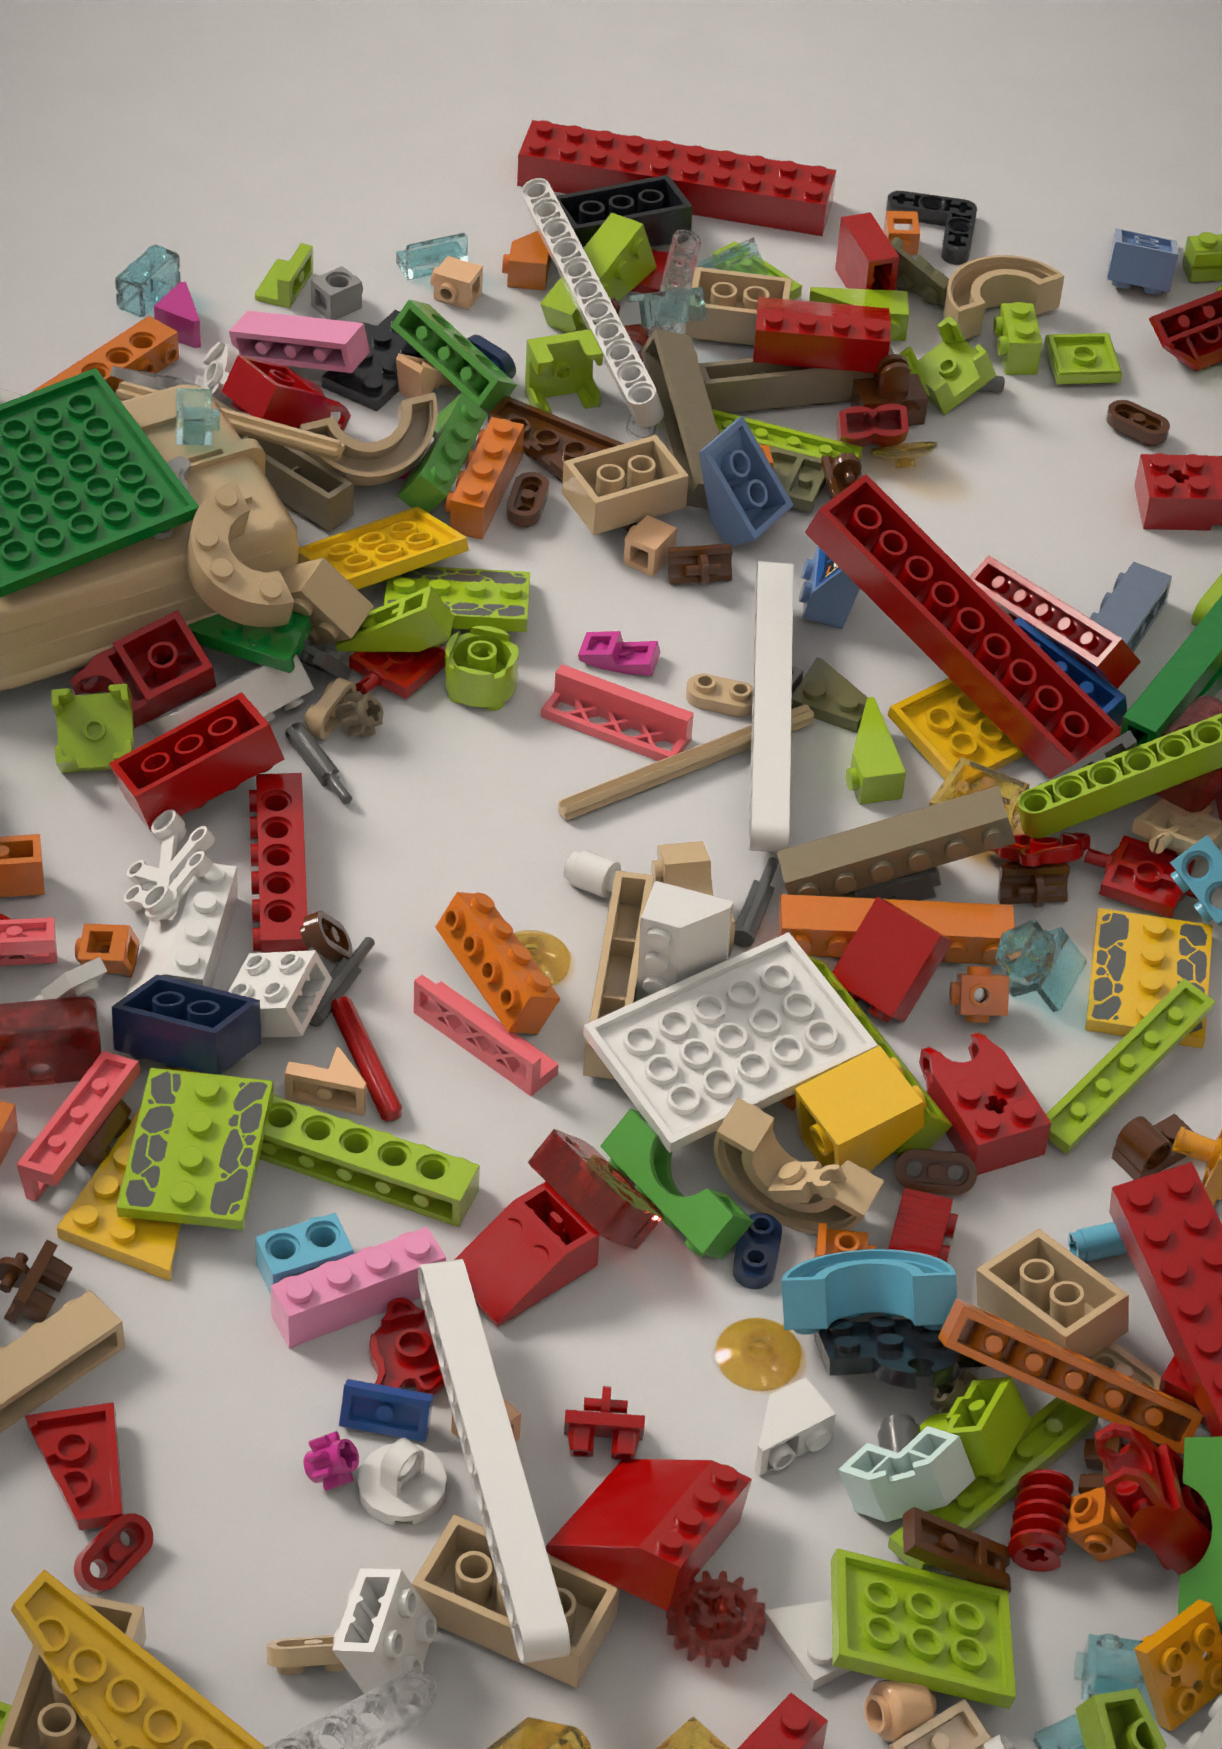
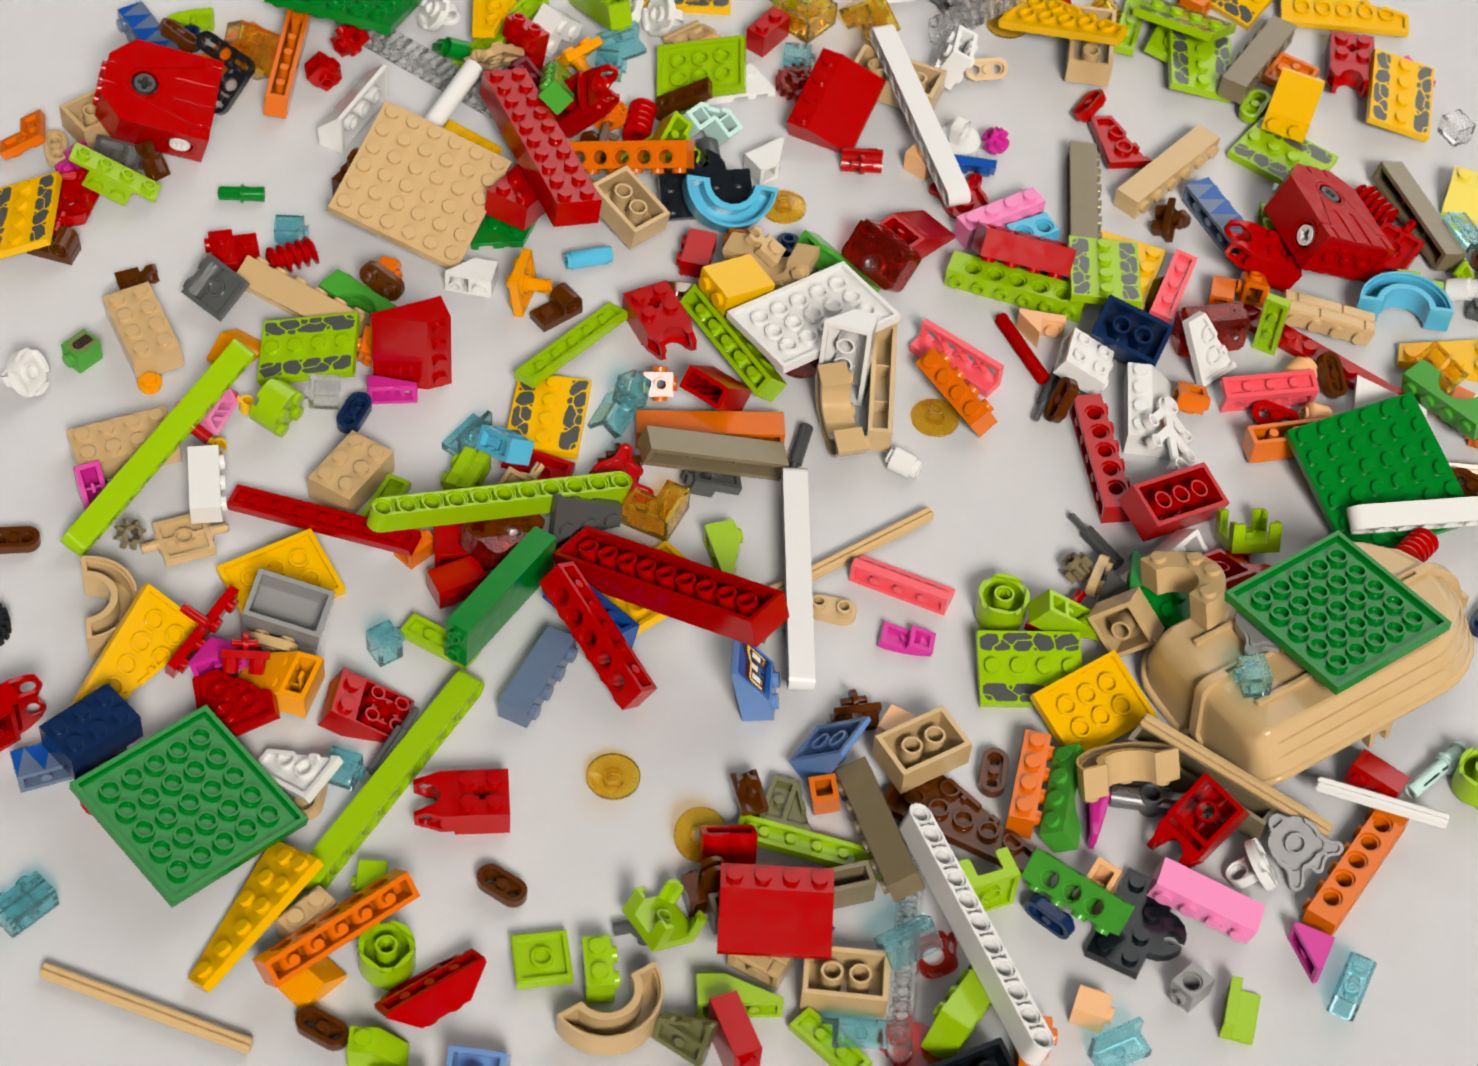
camera: 175 degrees right, 5 degrees up
(185, 1337) = (1083, 190): none -> dark tan brick
(339, 1169) = (1023, 249): none -> red brick
(714, 1683) = (798, 54): none -> clear light blue brick
(1014, 511) = (616, 768): none -> clear yellow dish

